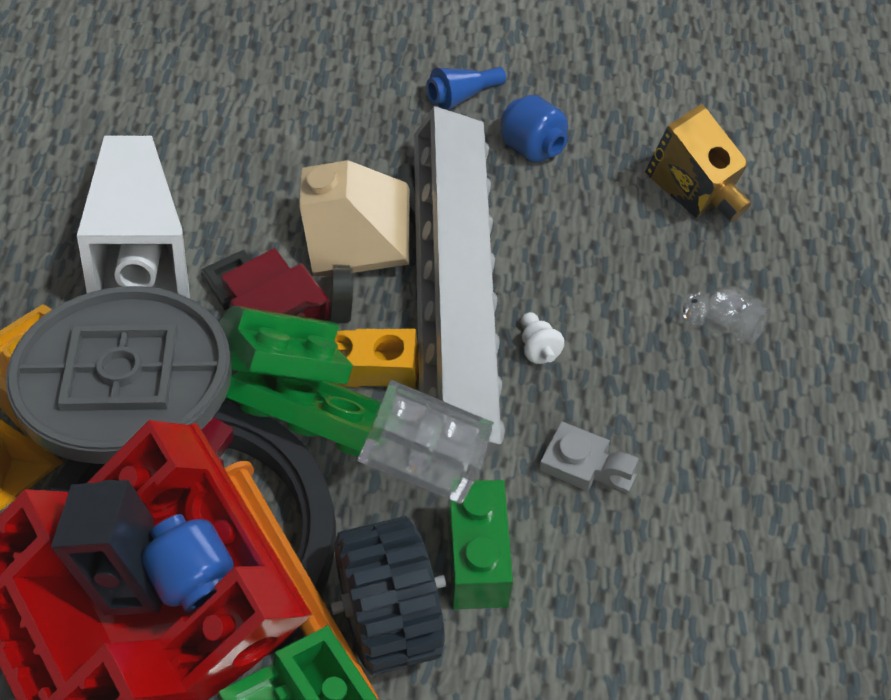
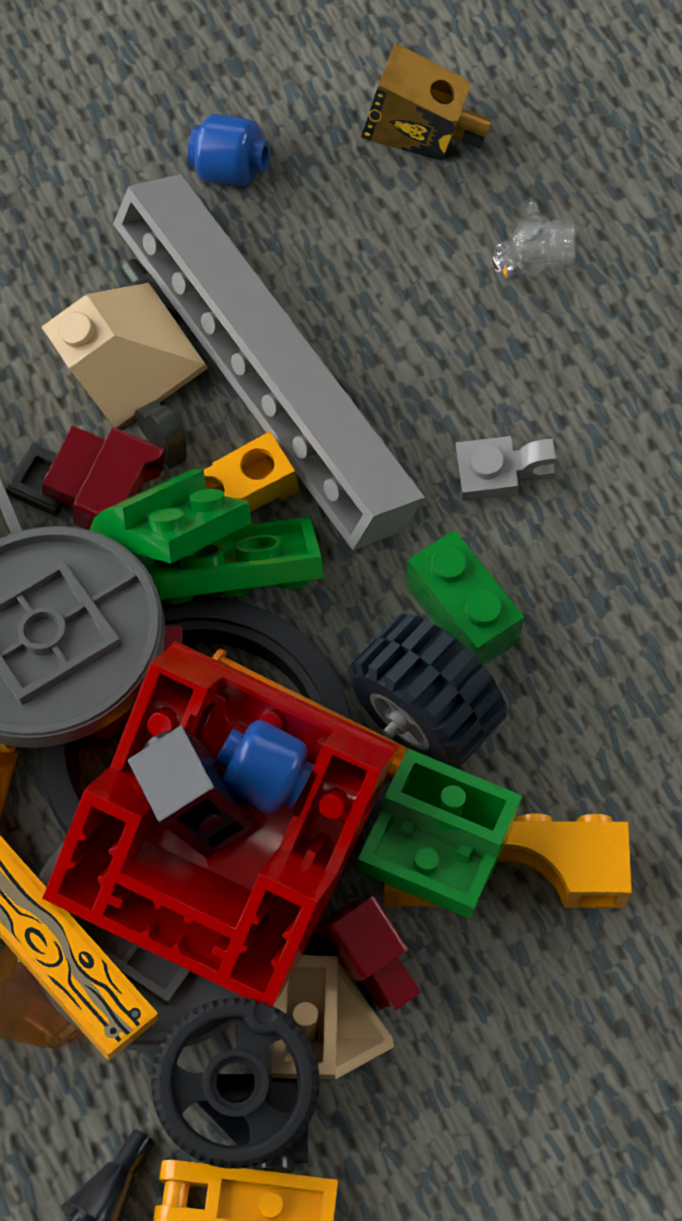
camera: 30 degrees left, 10 degrees up
(426, 442) = (375, 535): clear brick -> none
(453, 86) = (113, 146): blue cone -> none
(540, 340) = (383, 373): white hair -> none

